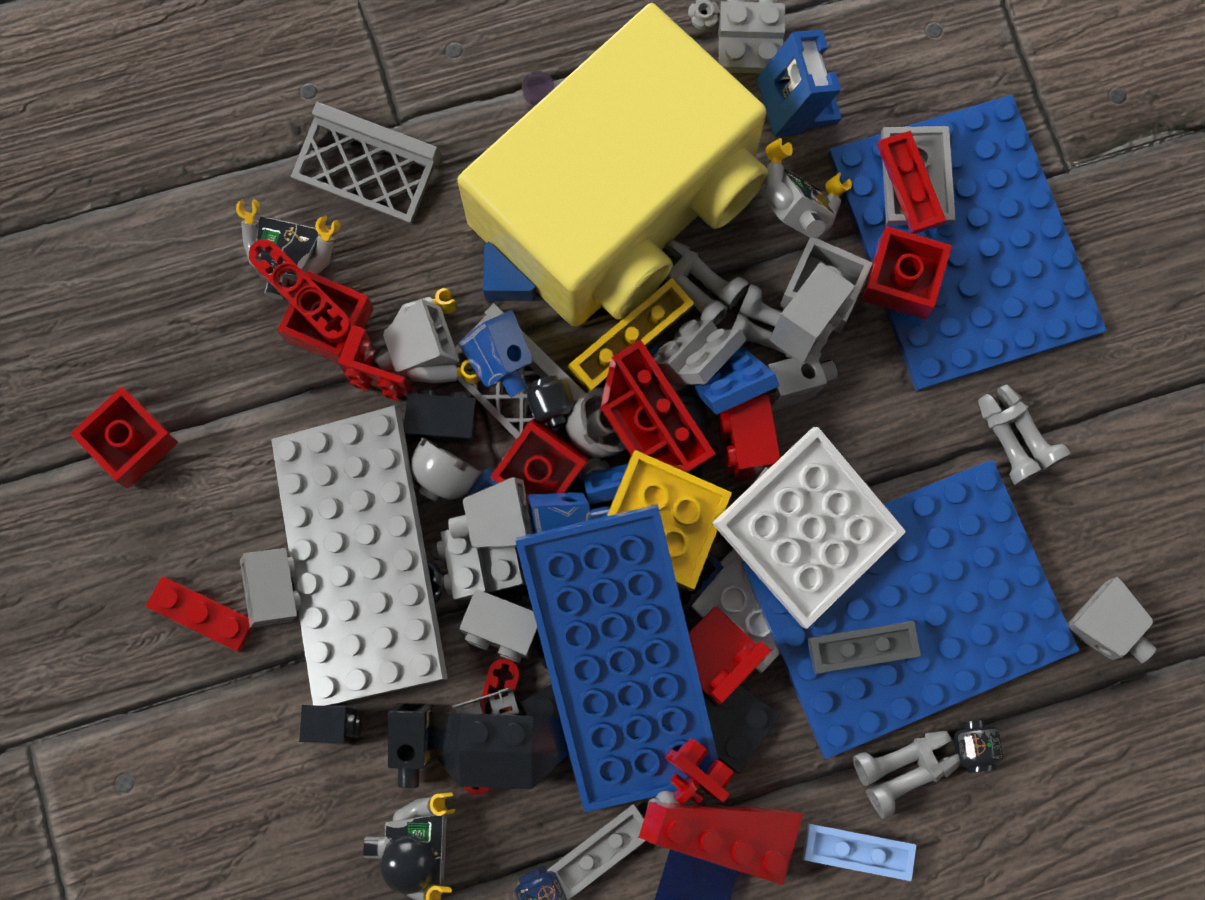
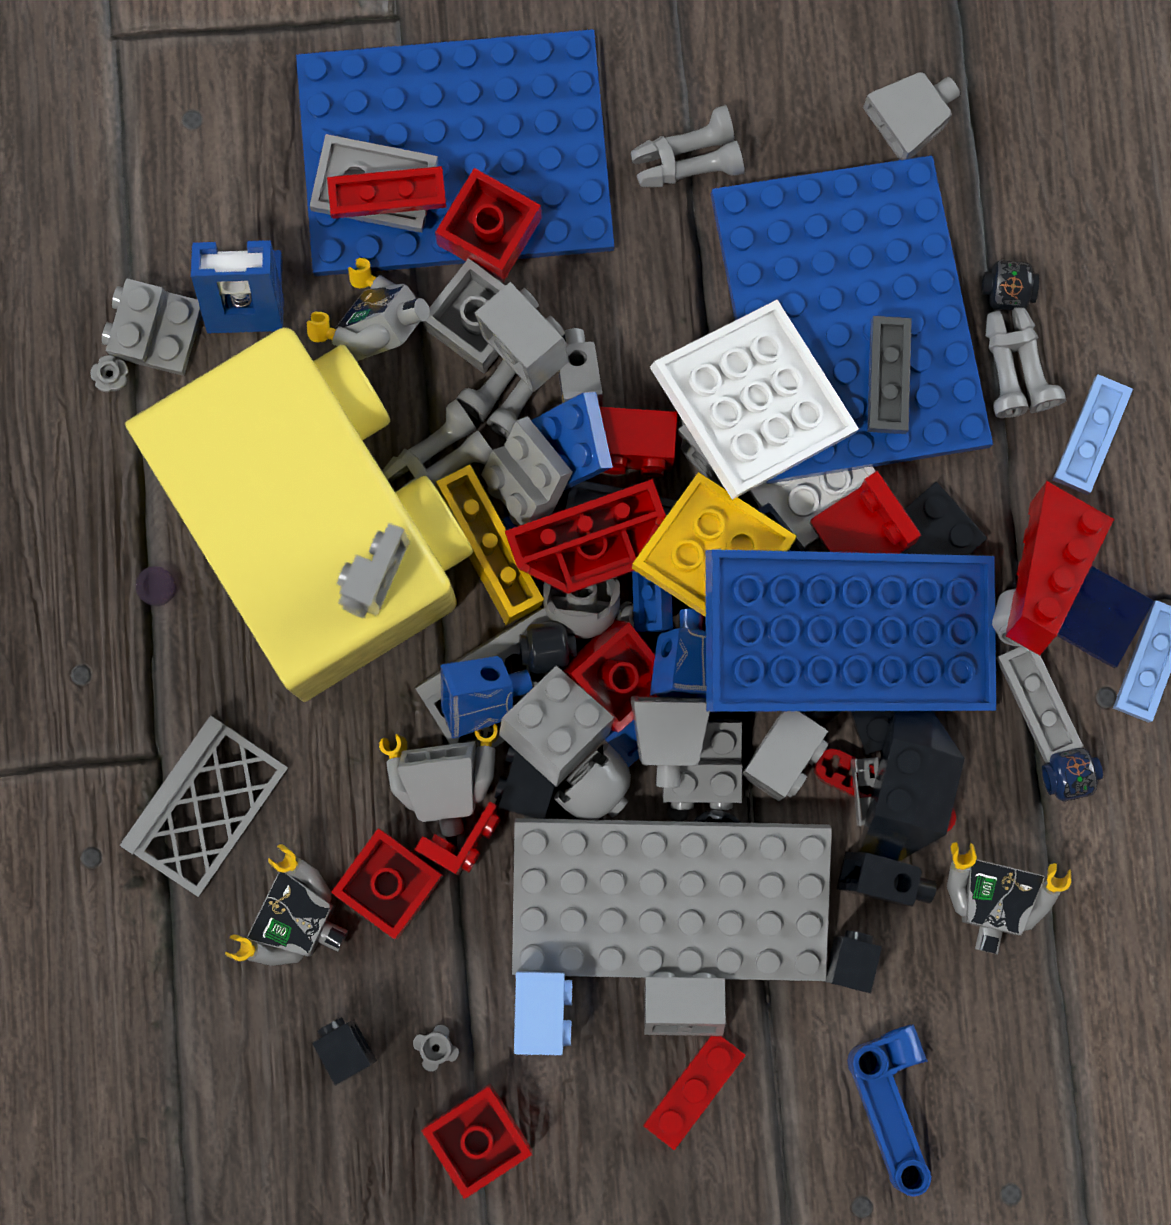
camera: 80 degrees left, 5 degrees up
(180, 311) = (343, 1050): none -> black brick
(191, 386) = (430, 1058): none -> light grey plate
(238, 465) = (540, 1013): none -> light blue brick
(262, 784) = (884, 1104): none -> blue piece
(298, 292) = (354, 899): red beam -> none
(408, 863) = (1016, 904): black hair -> none
(484, 422) = (556, 725): none -> light grey brick
(503, 279) = (382, 674): blue slope -> none
(559, 218) = (366, 581): none -> light grey plate
(712, 781) = (971, 586): red hips -> none

